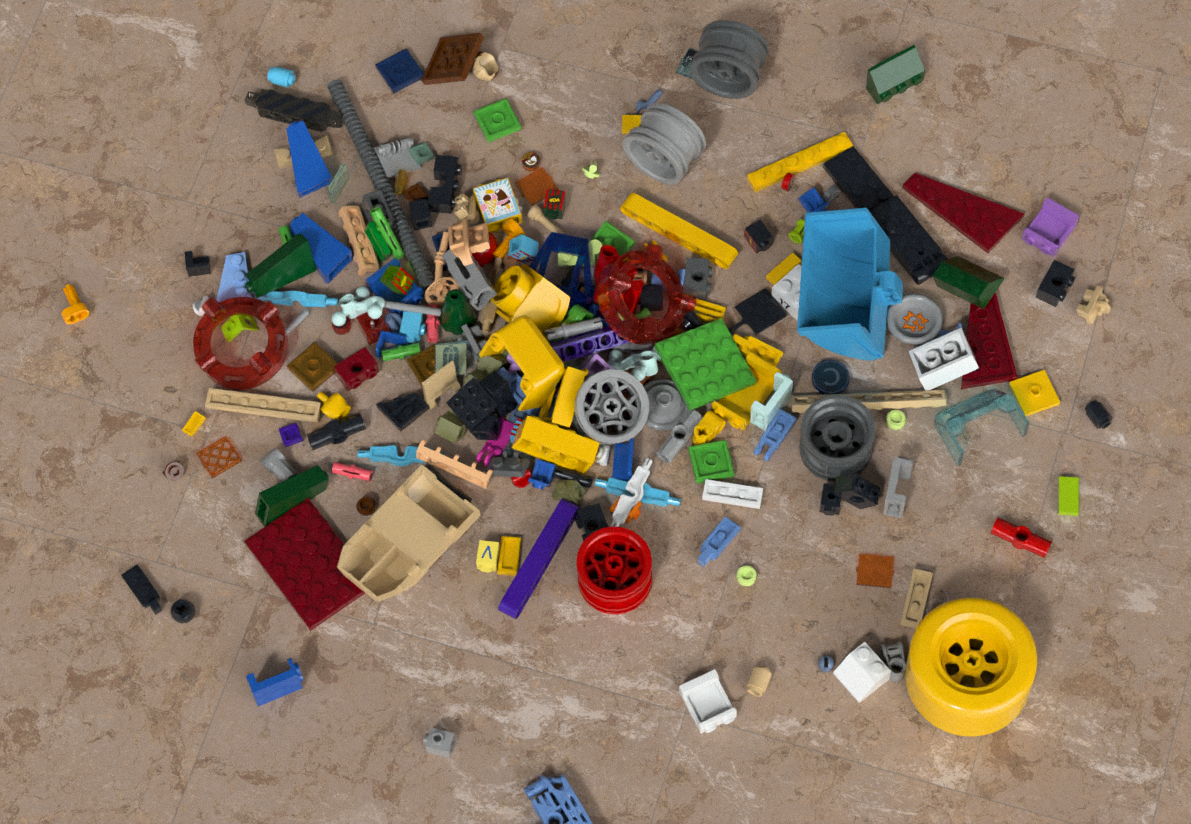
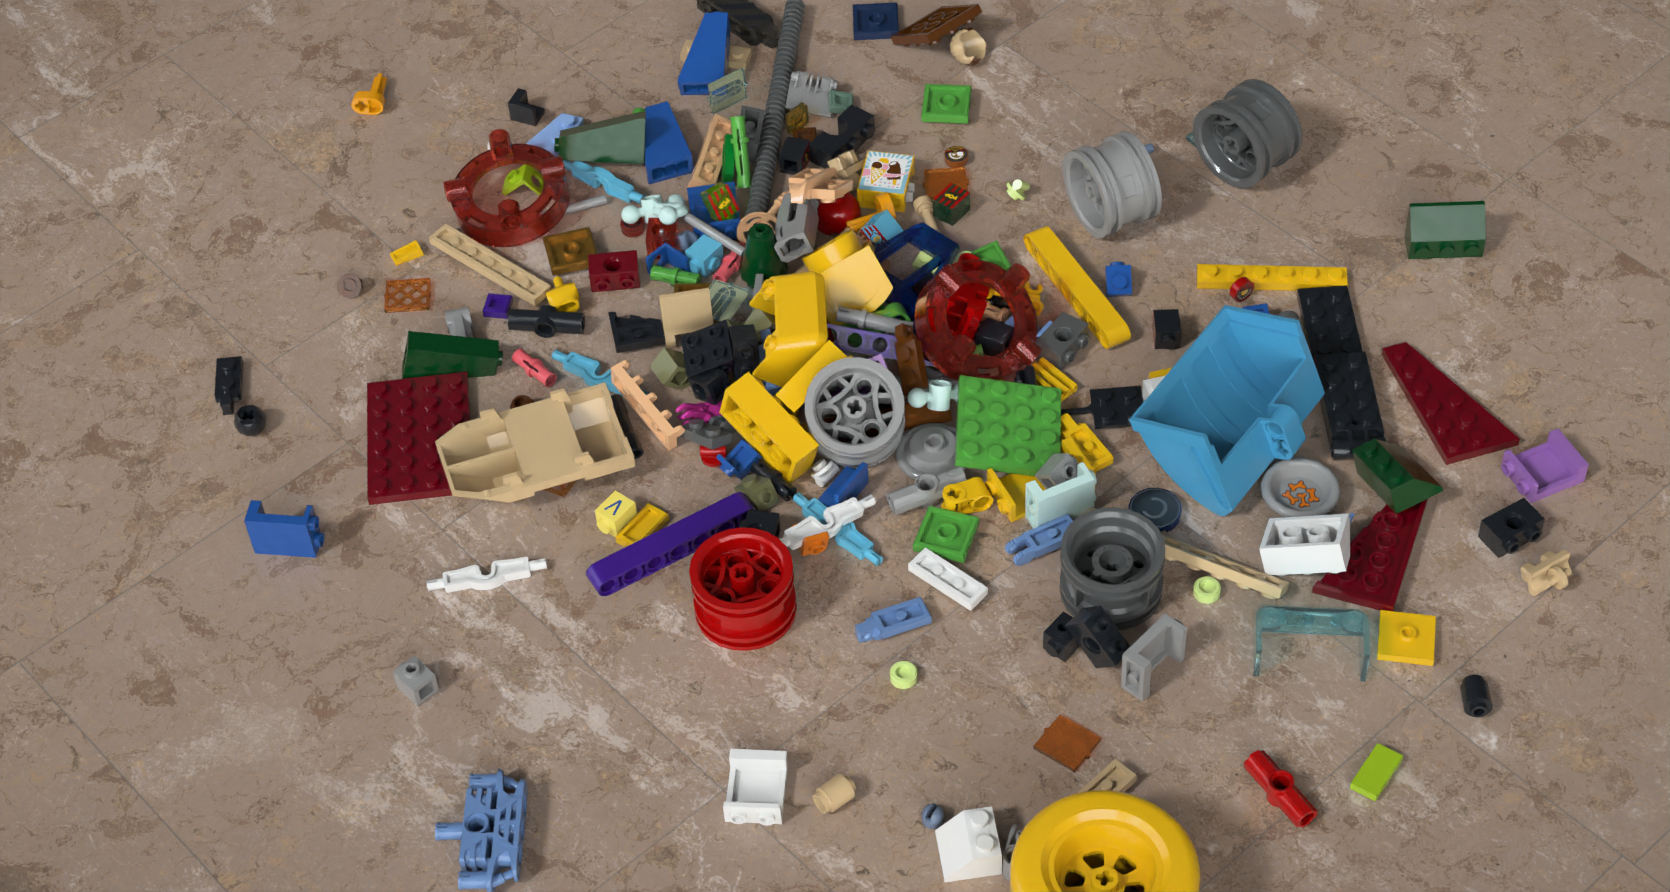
camera: 30 degrees right, 15 degrees down
(422, 649) = (501, 572): none -> white piece
(618, 349) = (910, 359): none -> reddish brown hinge
(703, 211) = (1118, 279): none -> blue bracket
(759, 383) = (1057, 469): none -> light grey brick

